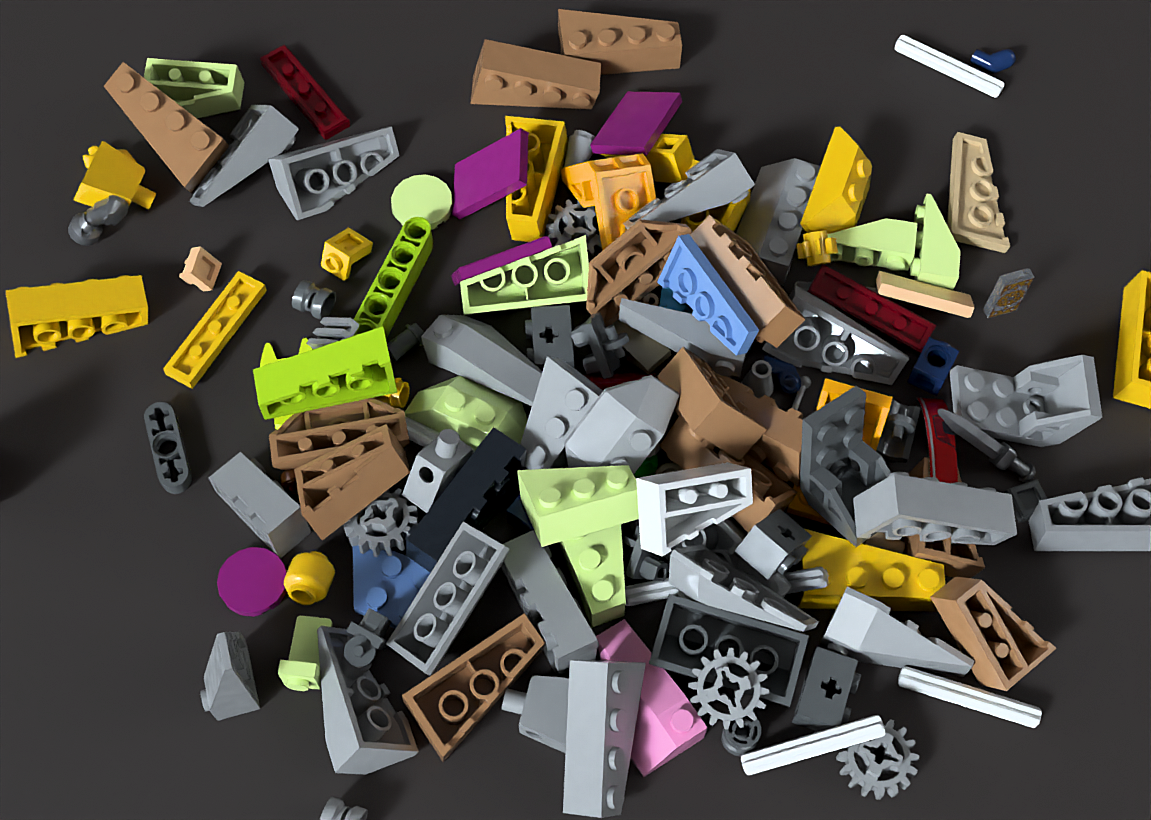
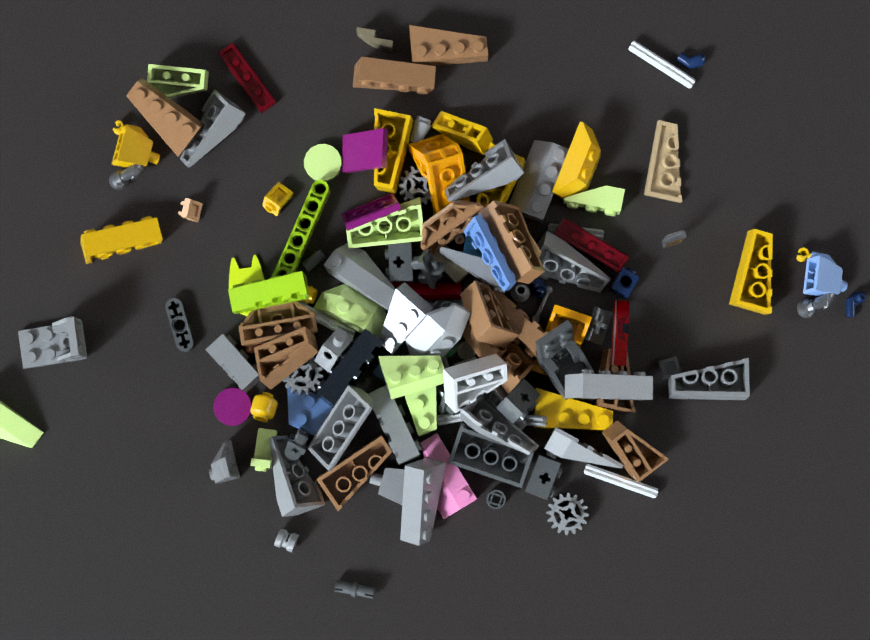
camera: 10 degrees right, 20 degrees up
(215, 329) = (202, 250): yellow plate -> none
(312, 299) = (259, 232): dark grey wheel -> none
(324, 173) = (263, 140): light grey wedge -> none
(335, 328) = (265, 254): light grey tile -> none
(496, 30) = (369, 37): none -> dark tan slope
(636, 123) = (456, 111): magenta tile -> none
(711, 693) = (496, 478): light grey gear -> none
(813, 745) = (532, 507): white axle -> none
(817, 248) = (561, 208): yellow gear -> none
(924, 294) = (624, 235): light nougat tile -> none
(937, 251) = (636, 208): yellowish green slope -> none
(1000, 454) = (656, 341): flat silver sword -> none
(1034, 407) = (672, 311): light grey bracket -> none

